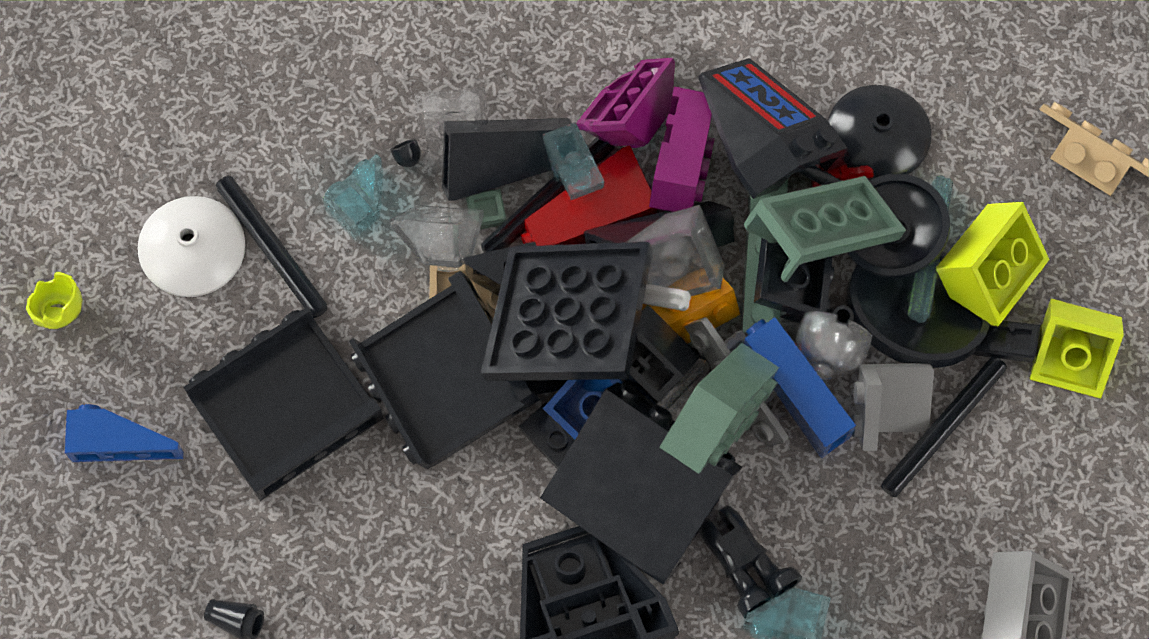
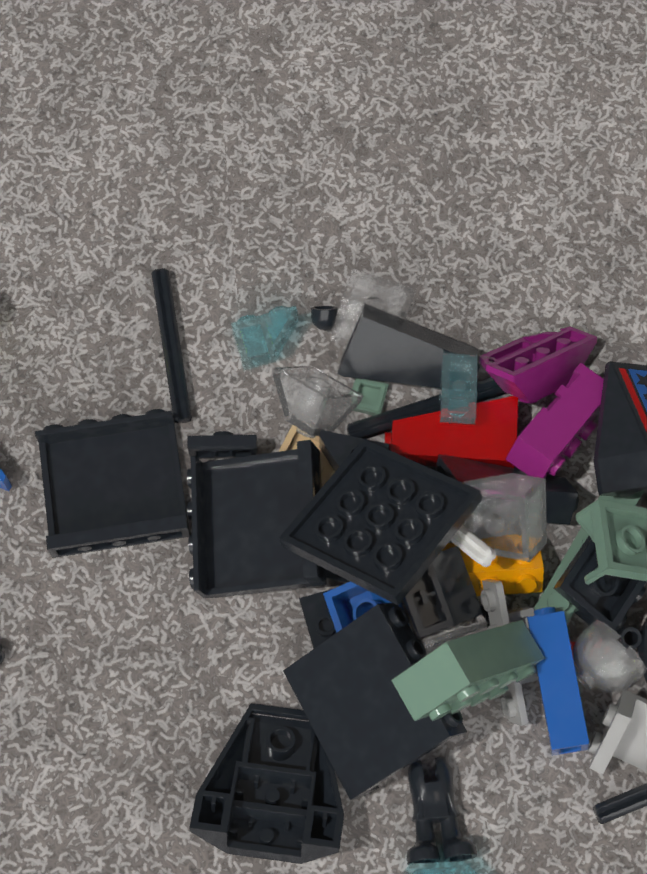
camera: 30 degrees right, 0 degrees up
(193, 265) = (108, 332): white dish -> none
(372, 318) = (222, 445): none -> black plate

